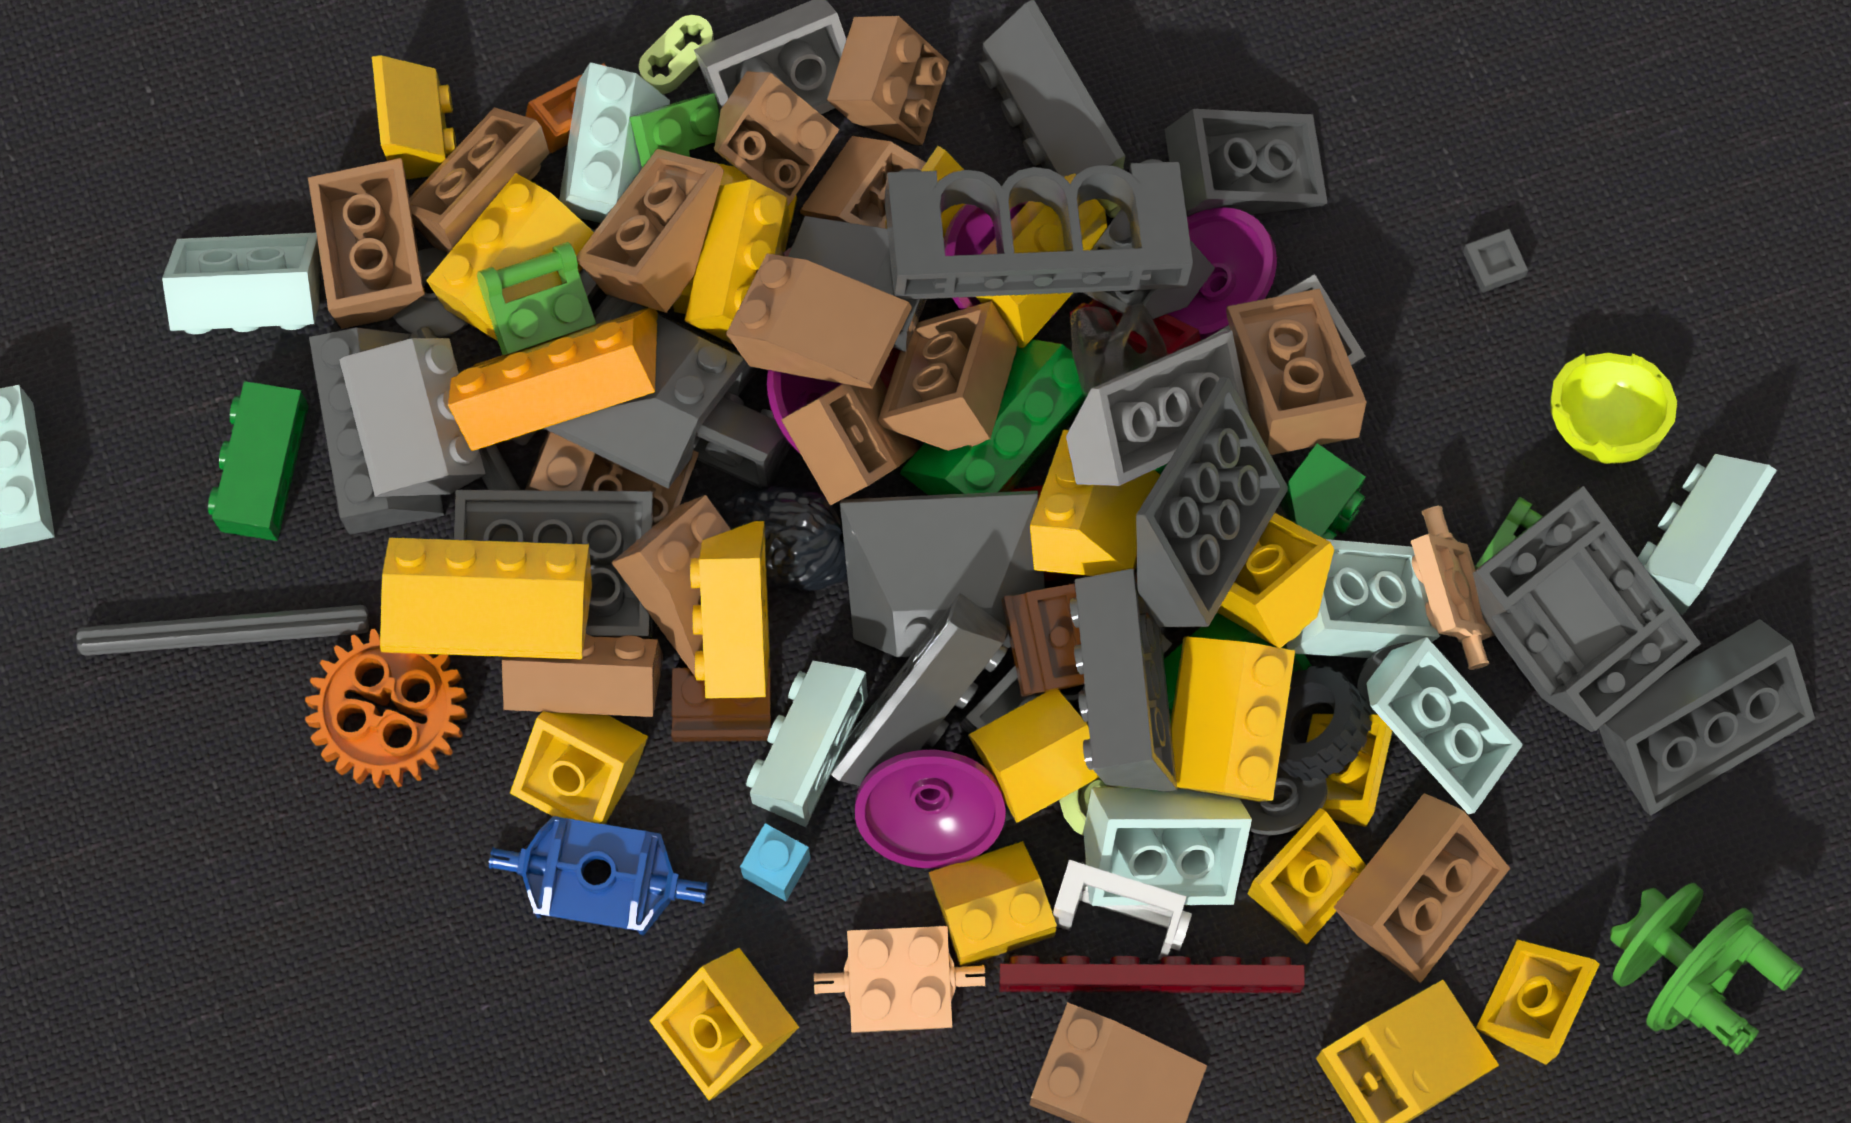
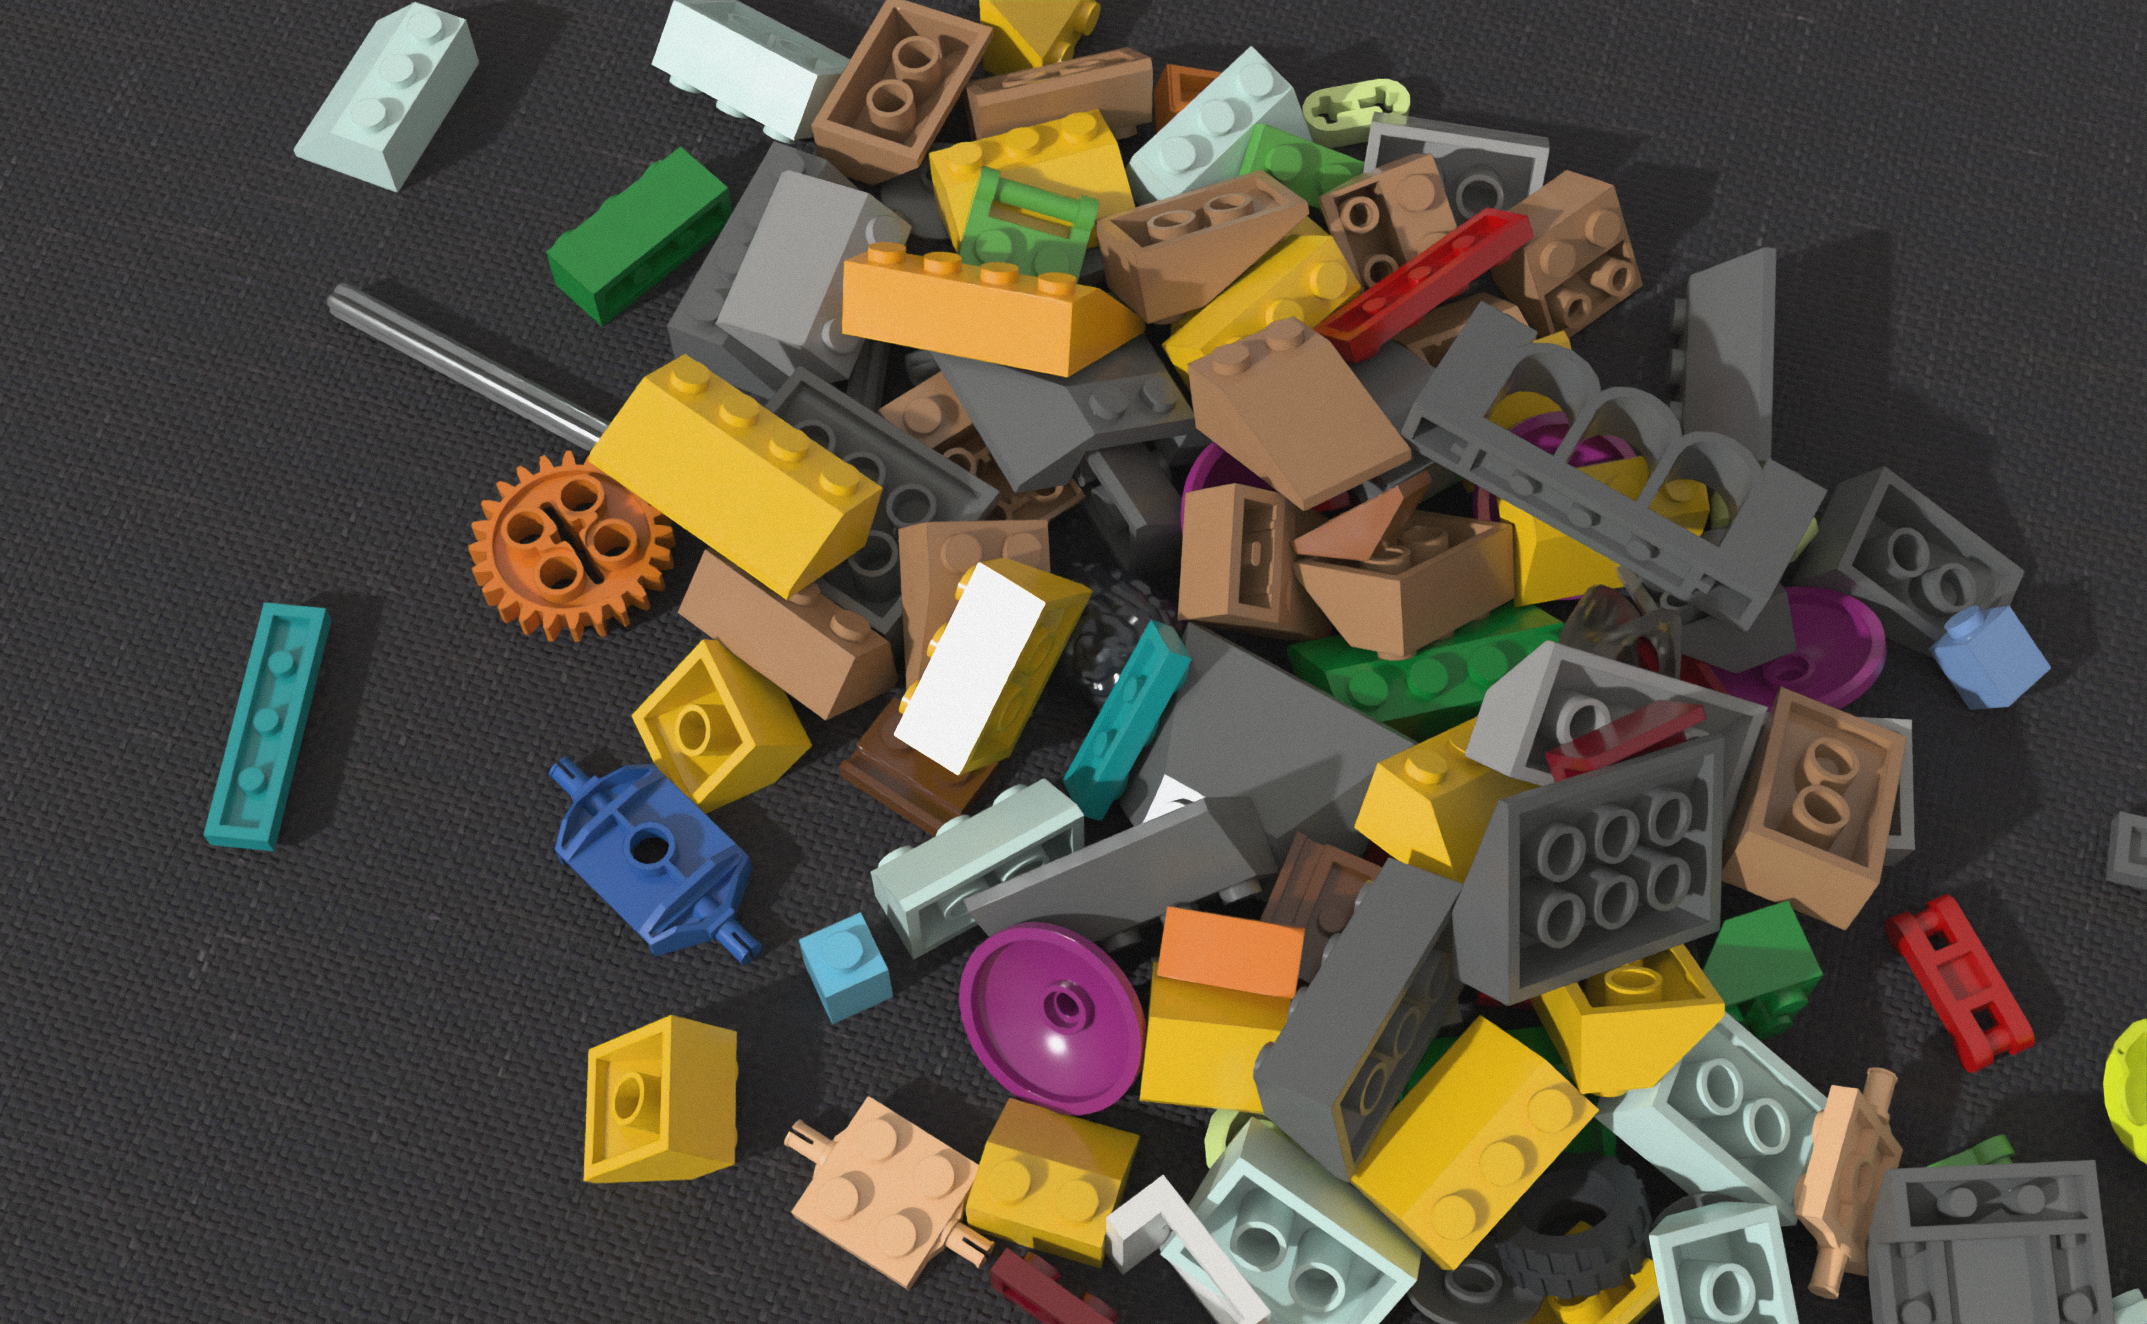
camera: 35 degrees right, 10 degrees down
(281, 960) = (268, 727): none -> teal plate
(825, 169) = (1424, 283): none -> red plate
(840, 590) = (1127, 720): none -> teal plate
(907, 369) = (1367, 527): none -> slope
(1018, 698) = (1231, 952): none -> orange slope
(1171, 419) = (1628, 737): none -> dark red panel
(1329, 193) = (1989, 657): none -> medium blue brick
(1437, 417) = (1960, 982): none -> red plate

